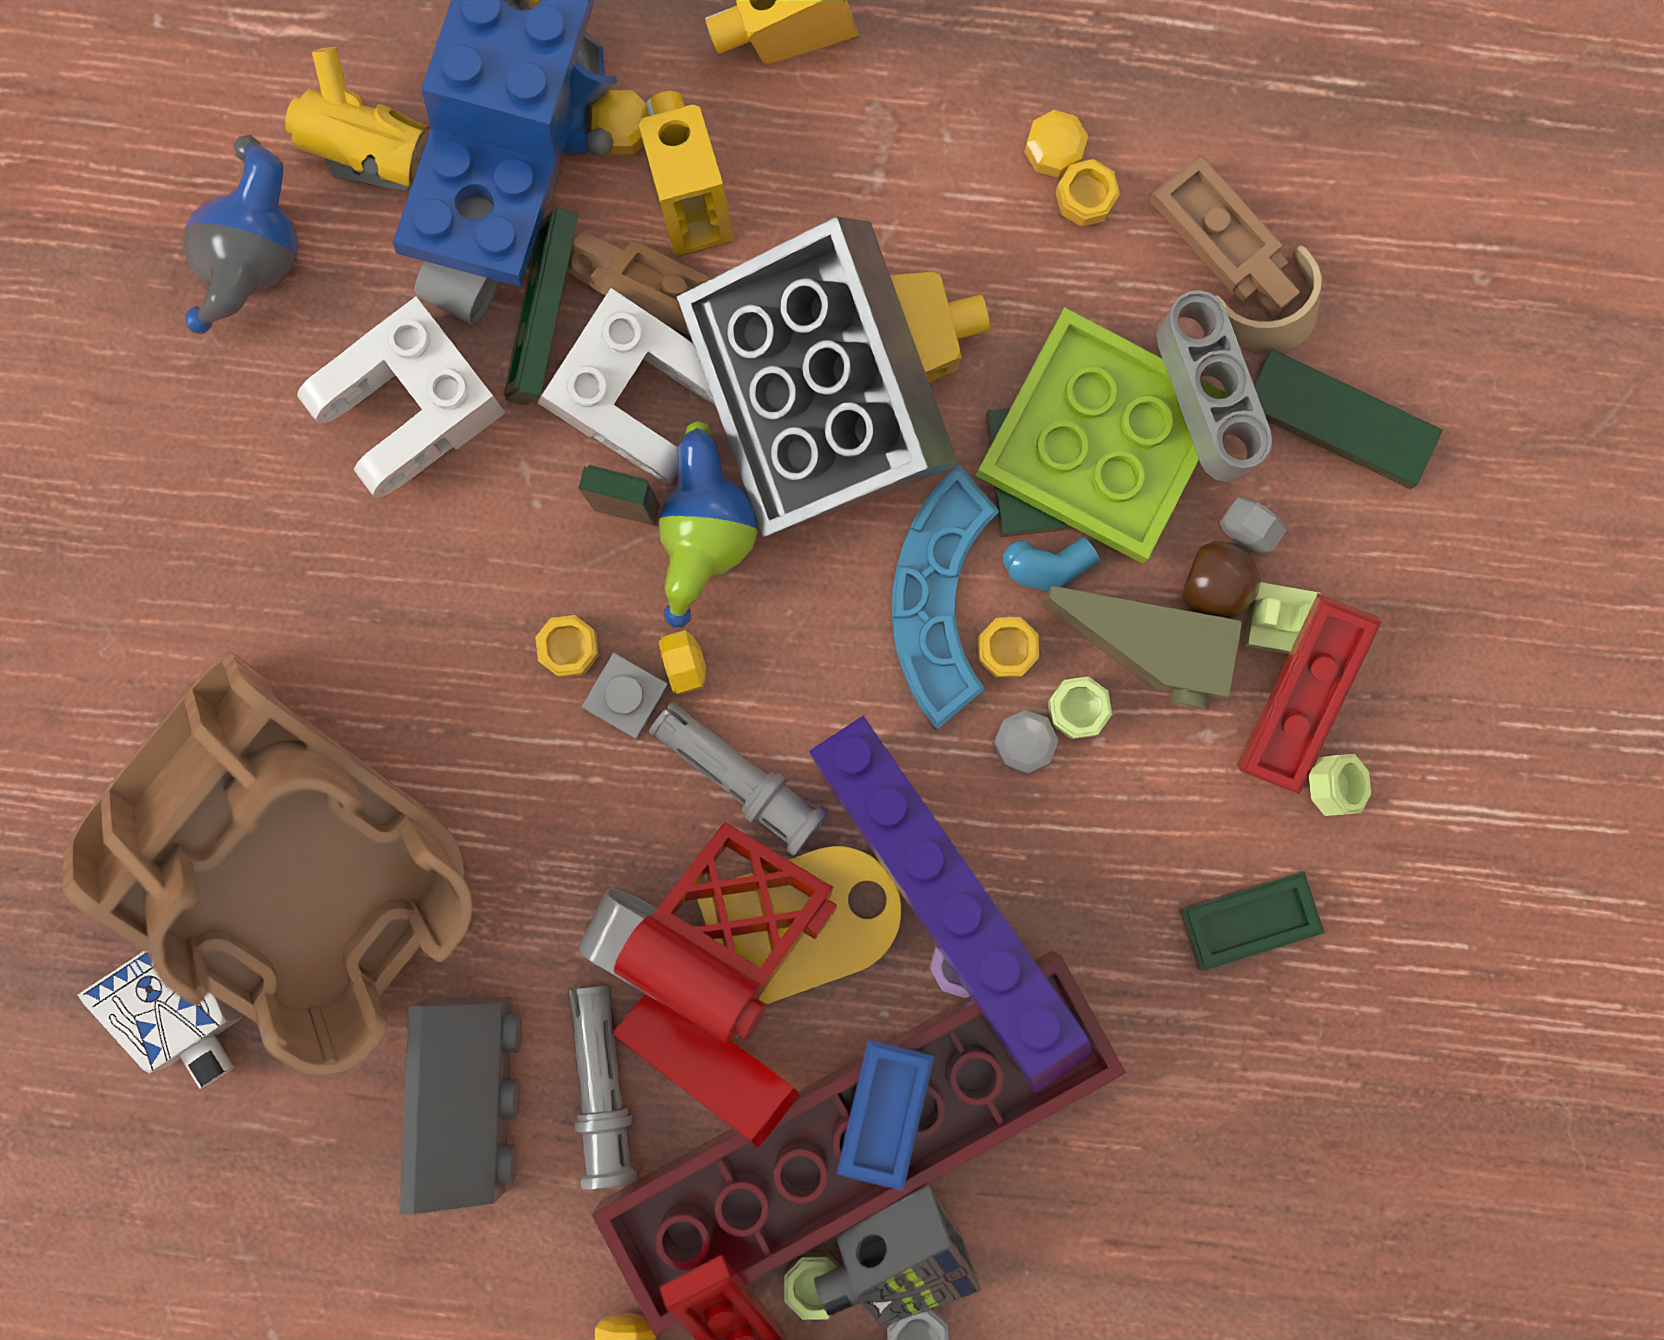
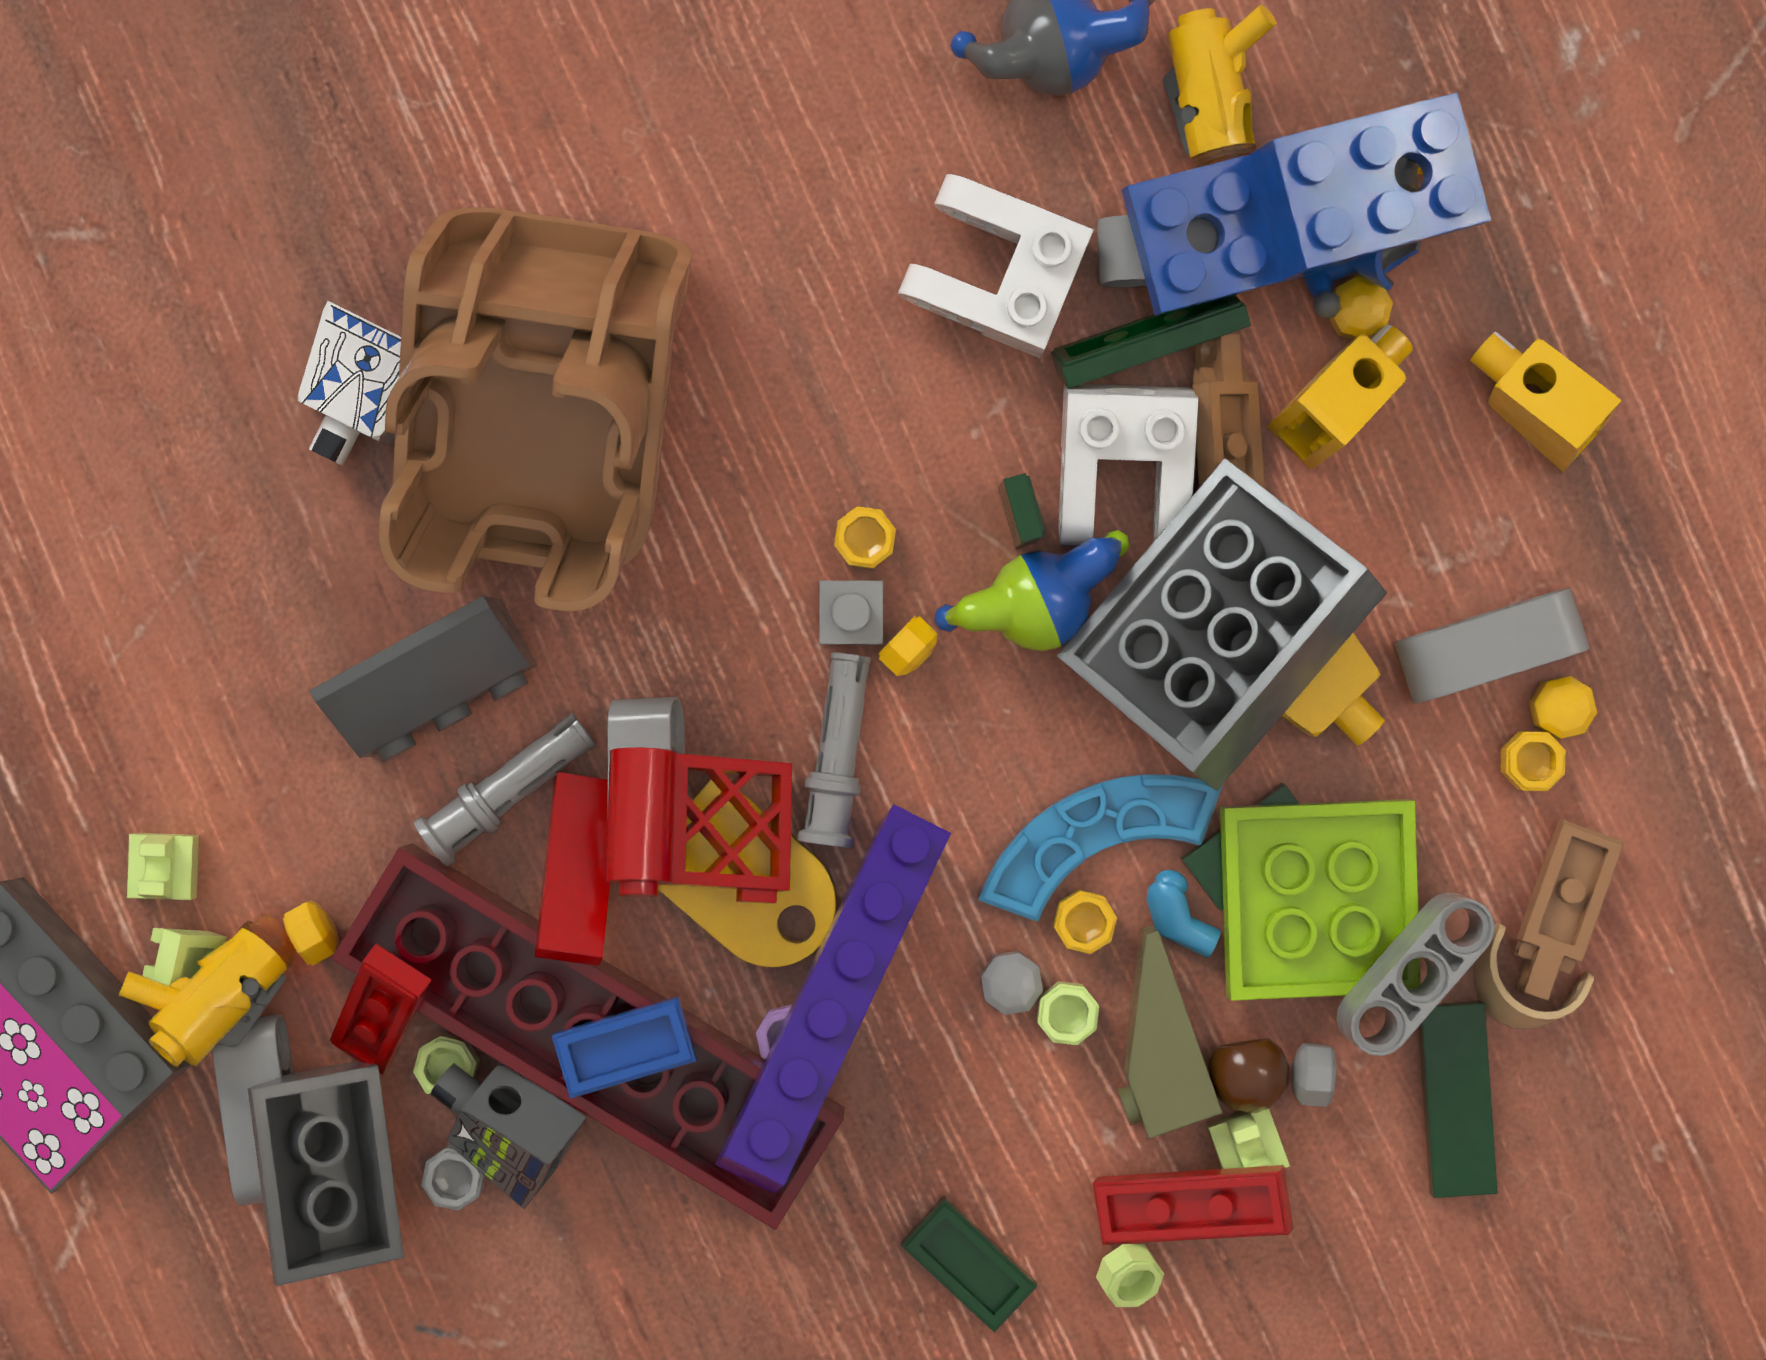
camera: 60 degrees right, 5 degrees up
(969, 171) = (1492, 645): none -> light grey beam

